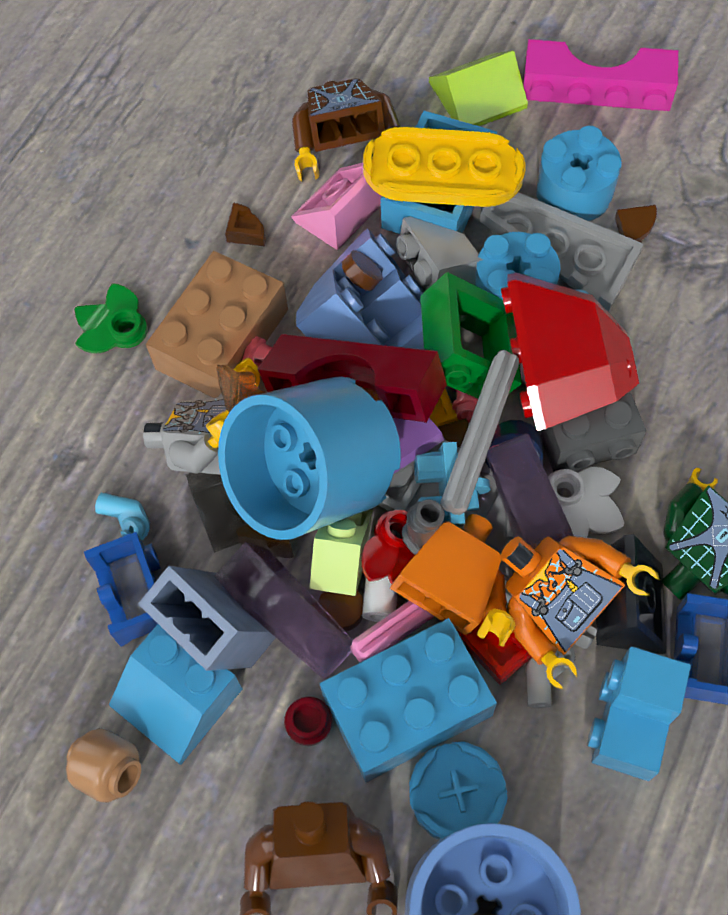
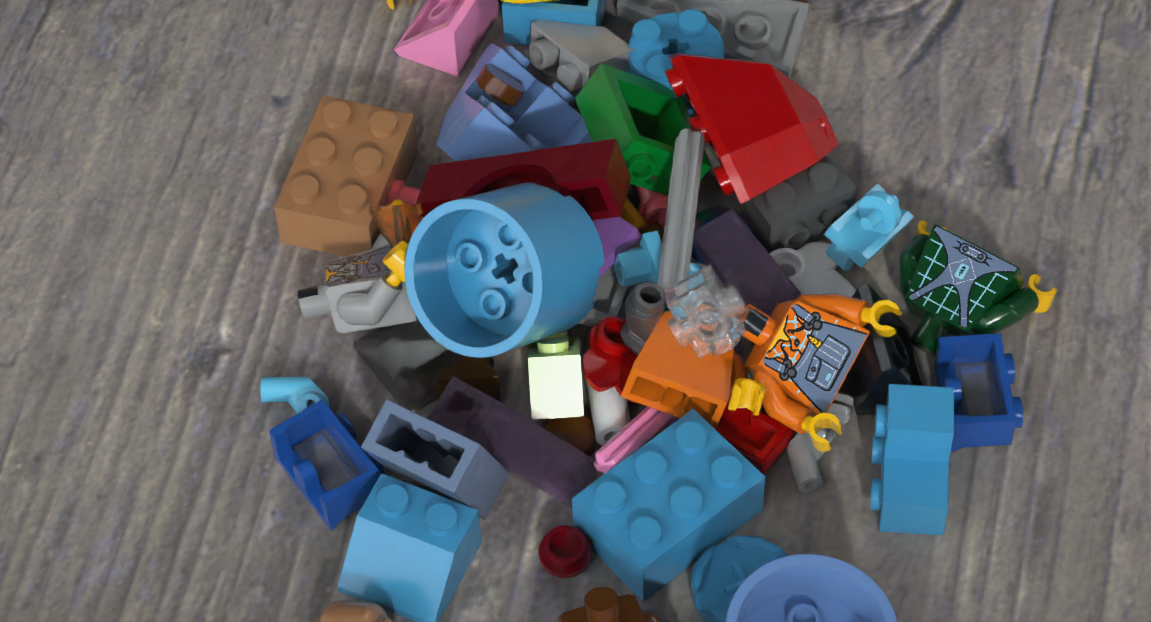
camera: 15 degrees left, 10 degrees down
(106, 322) = (212, 203): green plate -> none
(244, 227) = (342, 70): reddish brown tile -> none
(475, 542) = (706, 313): none -> clear brick
(646, 469) = (866, 228): none -> medium azure hips

